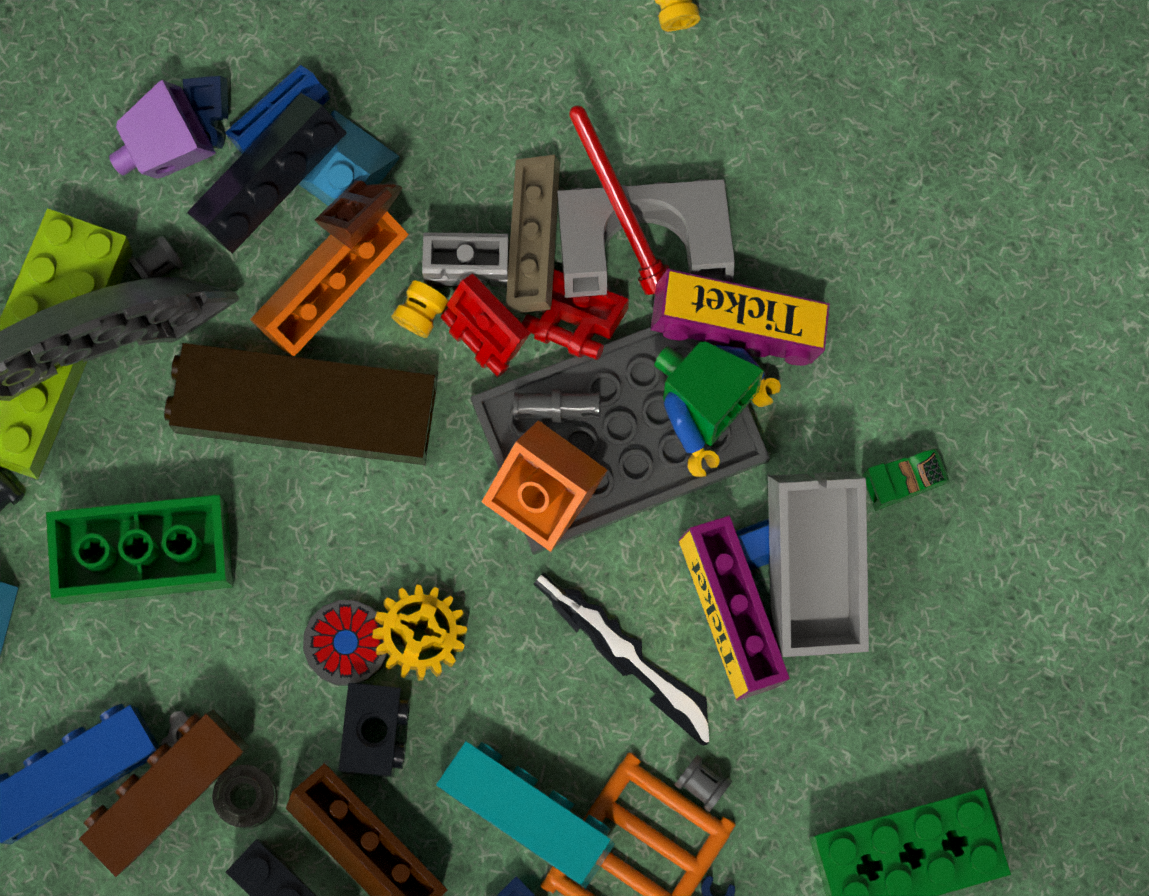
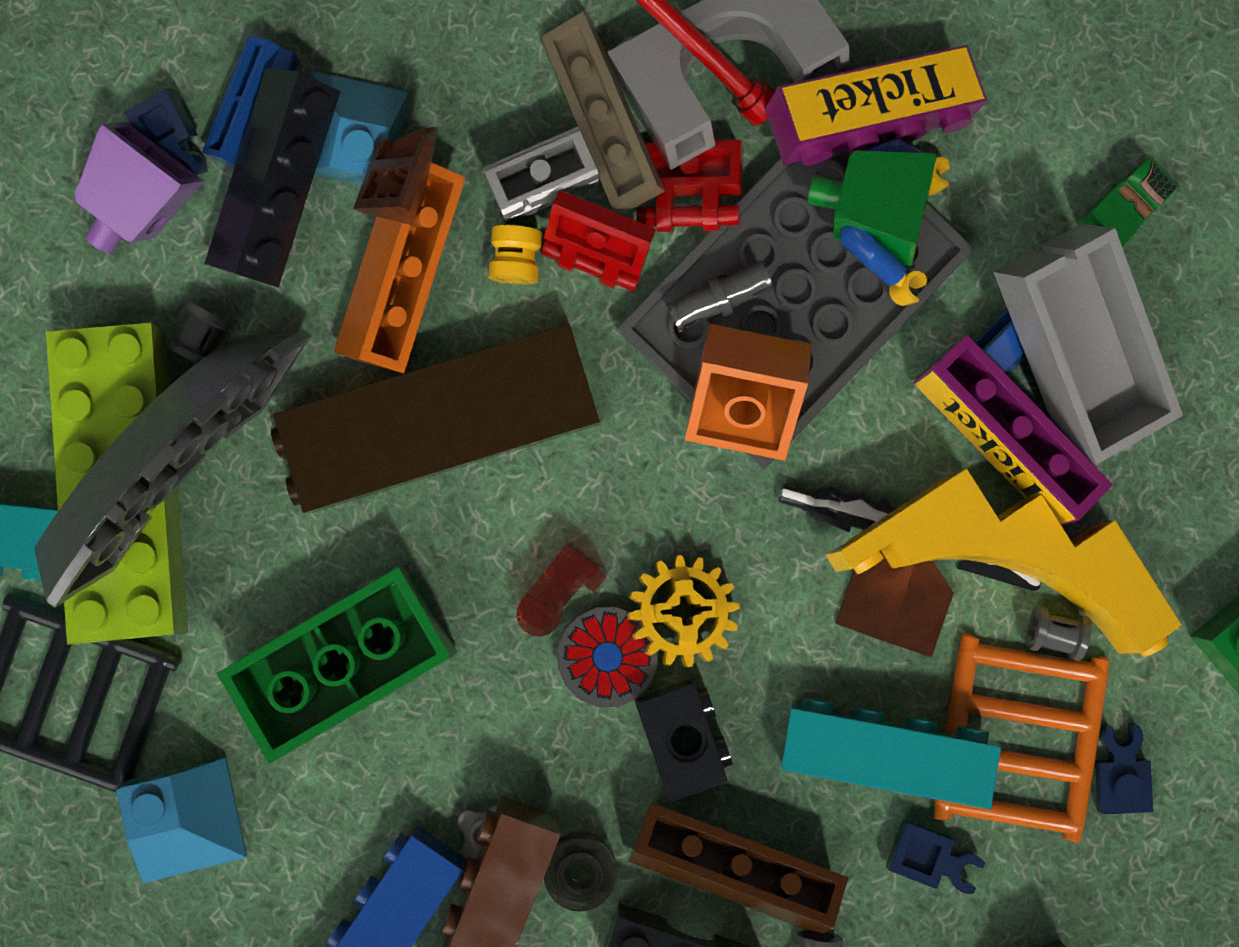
camera: 25 degrees left, 10 degrees up
(333, 569) = (544, 603): none -> clear red leg
(590, 702) = (898, 605): none -> copper slope
(658, 659) = (1091, 570): none -> yellow arch

